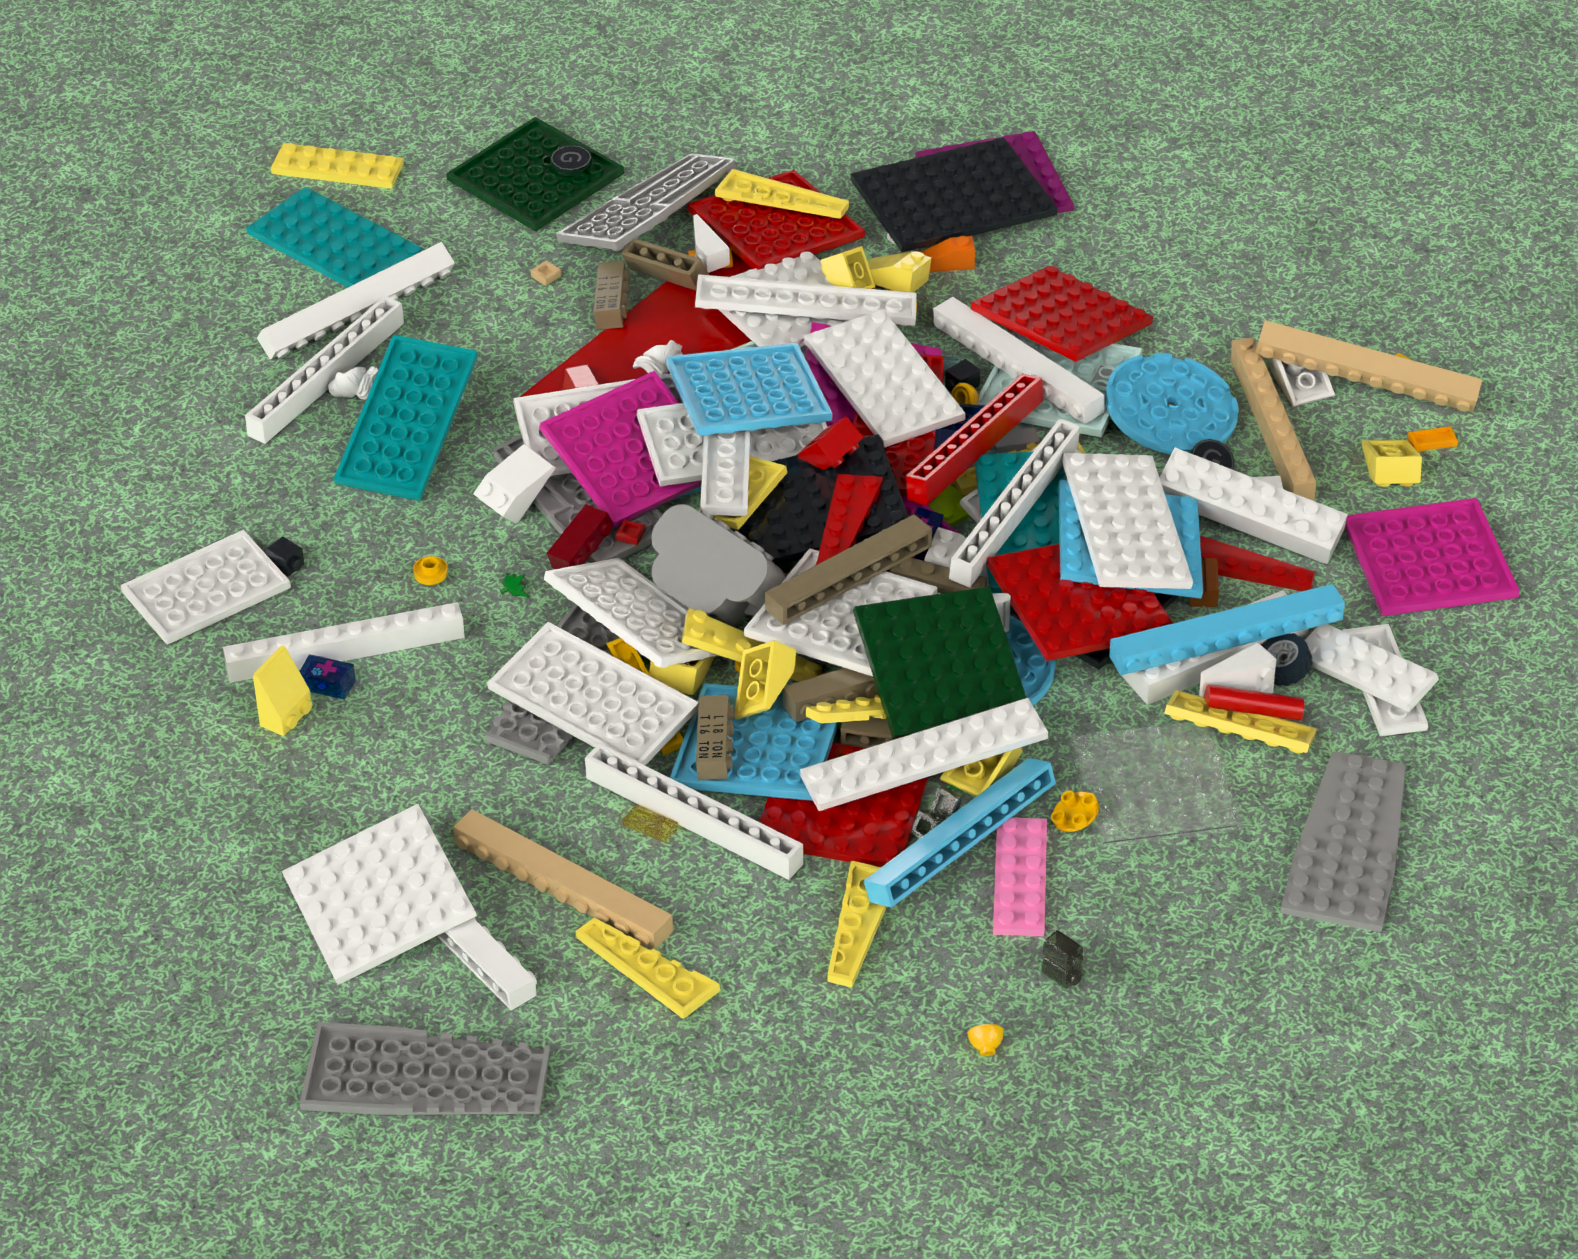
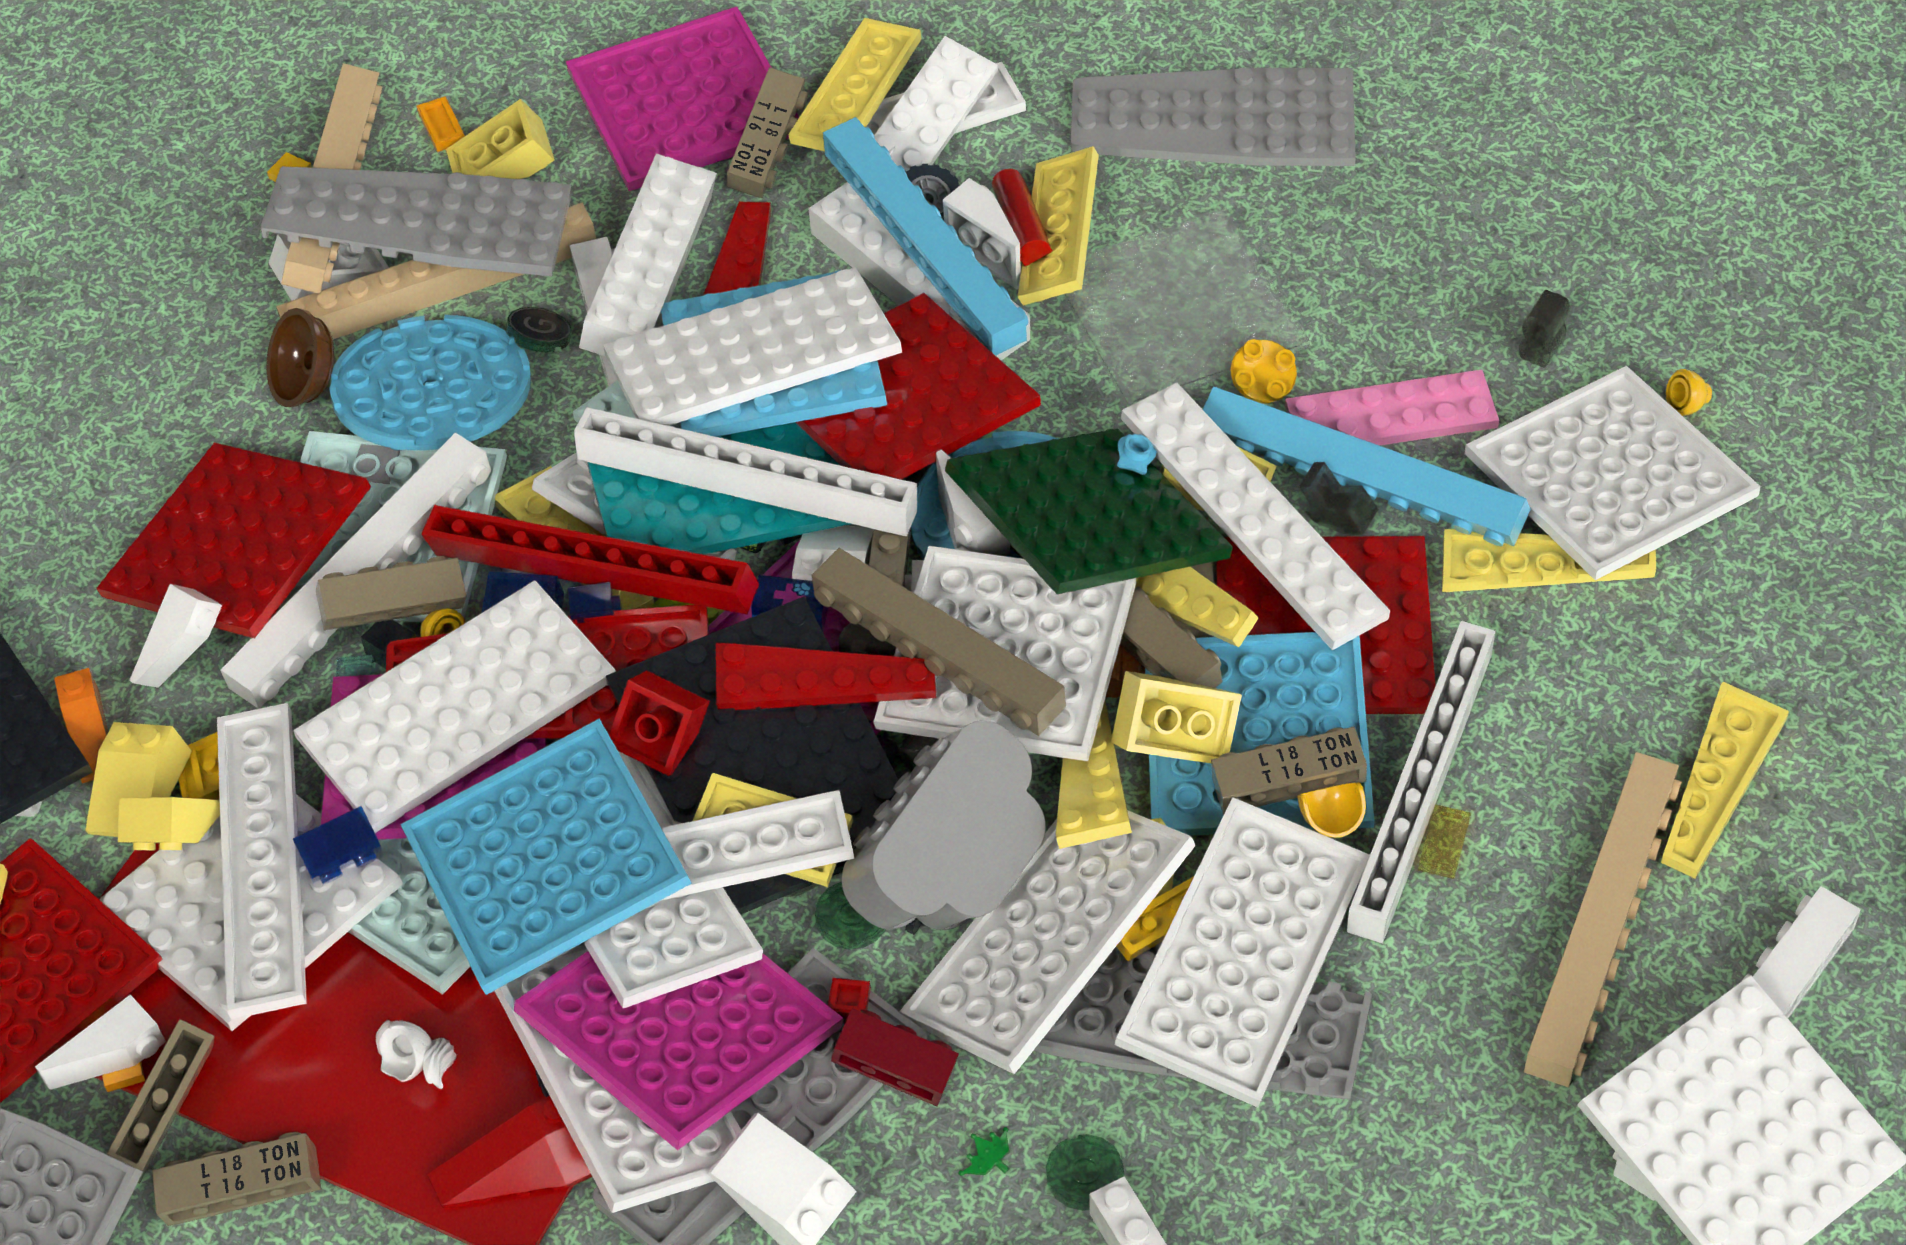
camera: 100 degrees left, 10 degrees up
(485, 627) = (1074, 1187): none -> clear green tile
(676, 747) = (1334, 809): none -> yellow helmet
(793, 320) = (337, 846): none -> clear blue brick
(920, 970) = (1612, 471): none -> white plate
(983, 360) = (390, 593): none -> dark tan brick
(987, 697) = (1135, 453): none -> medium azure animal
(988, 278) = (178, 630): none -> white slope
(1204, 346) = (299, 358): none -> reddish brown hat
(1299, 392) = (431, 215): none -> light grey wing
(1370, 580) = (766, 133): none -> dark tan brick
(1411, 635) = (856, 80): none -> light yellow plate

